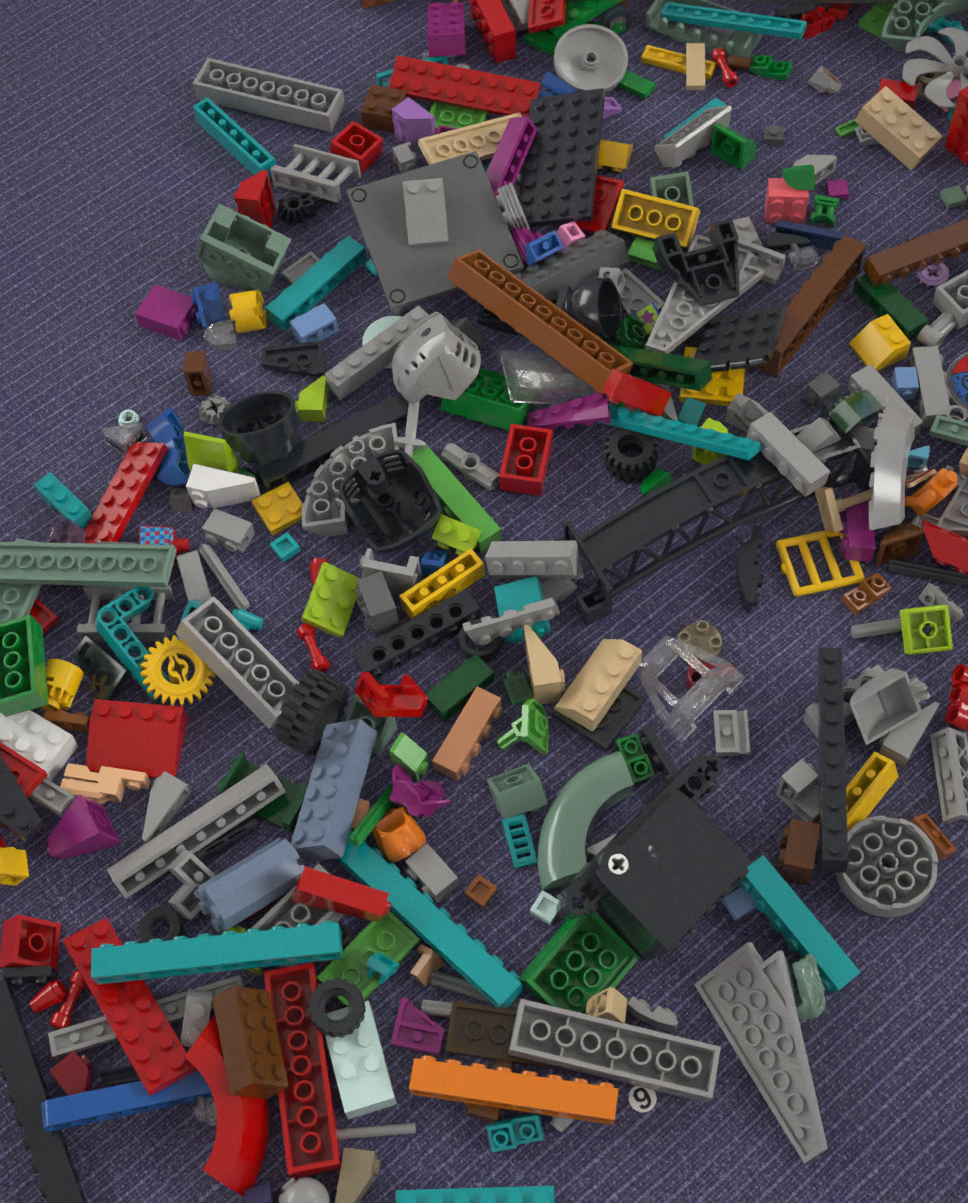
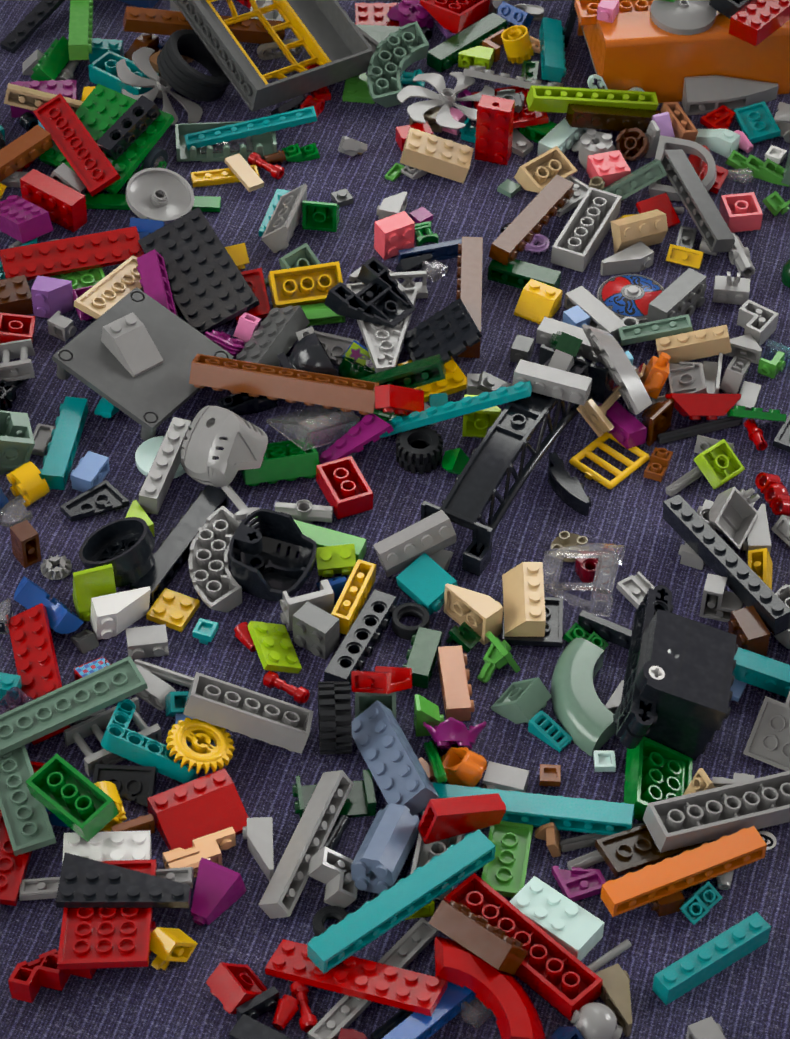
camera: 40 degrees left, 15 degrees down
(196, 1015) = (417, 952): light grey brick -> none
(333, 988) = (524, 871): black tyre -> none
(383, 965) = (527, 850): teal tile -> none
(510, 621) = (435, 584): light grey wing -> none
(511, 208) = (194, 316): light grey brick -> none
(543, 247) = (241, 336): blue slope -> none
(800, 177) = (401, 210): green brick -> none
(936, 332) = (571, 277): light grey piece -> none

